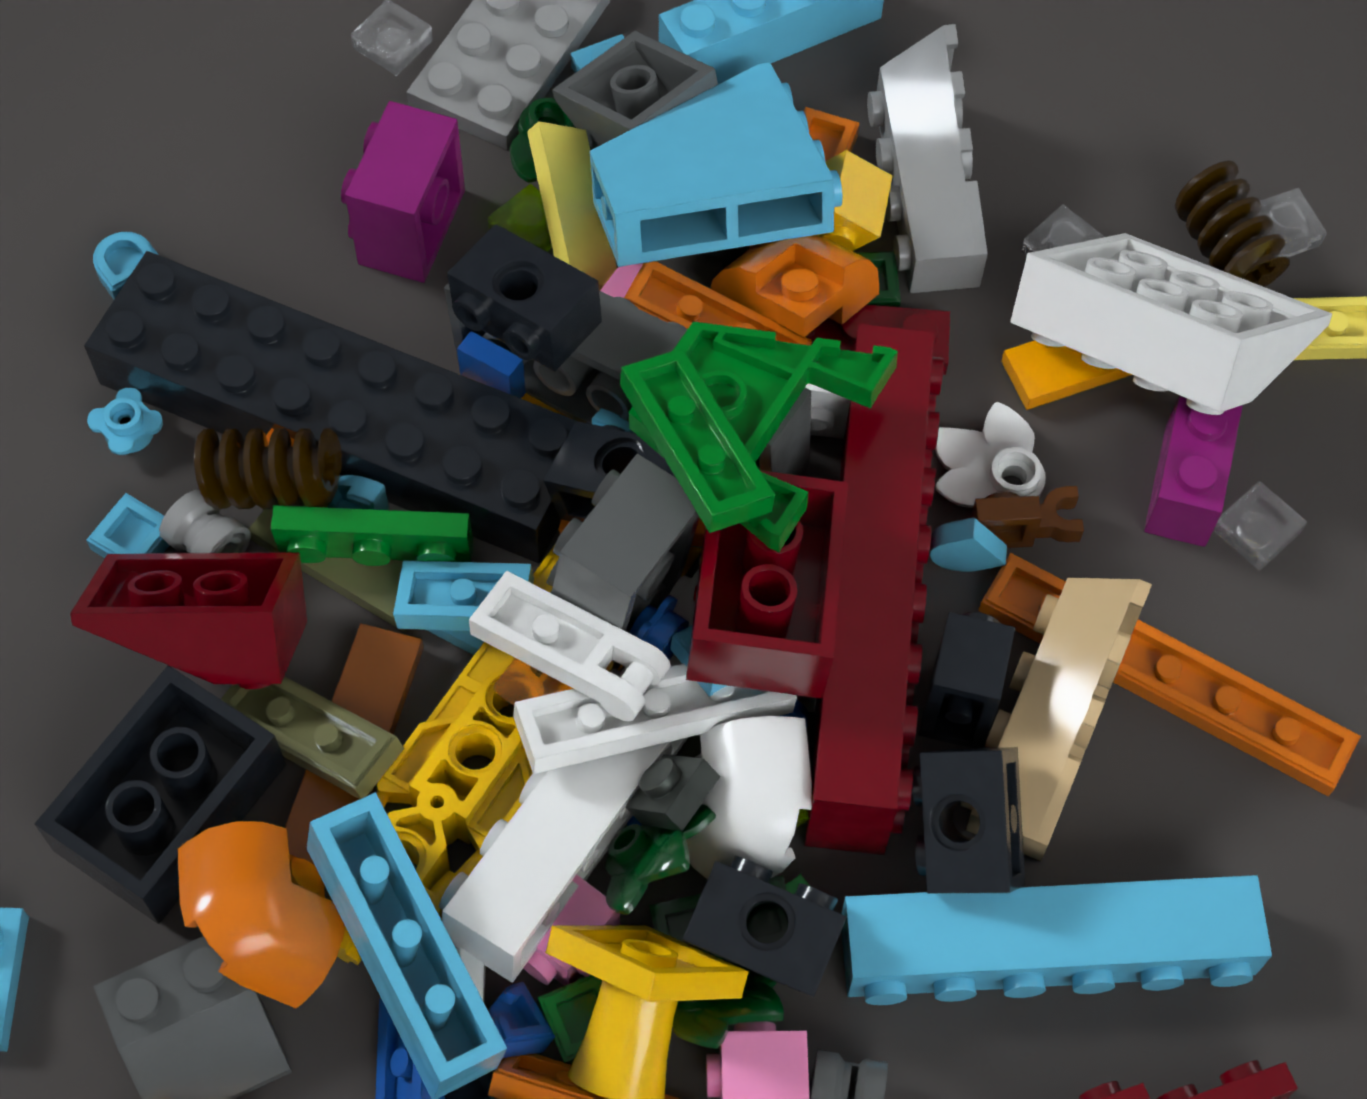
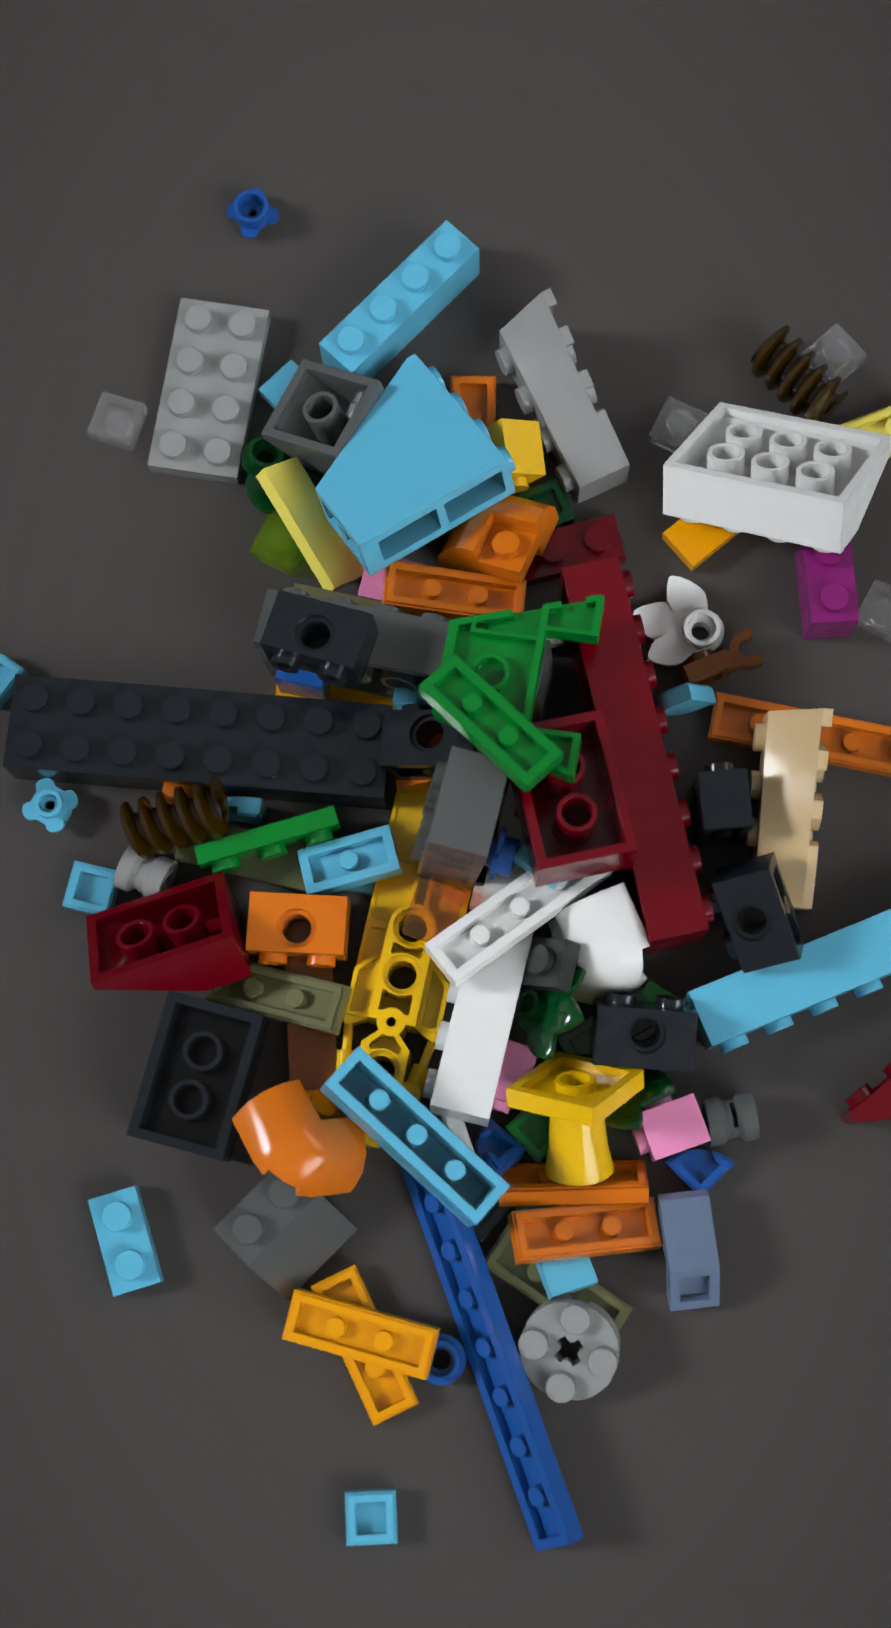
camera: 10 degrees left, 15 degrees up
(344, 623) = (274, 912): none -> orange brick
(404, 190) = (183, 557): magenta brick -> none
(568, 644) = (446, 891): white plate -> none

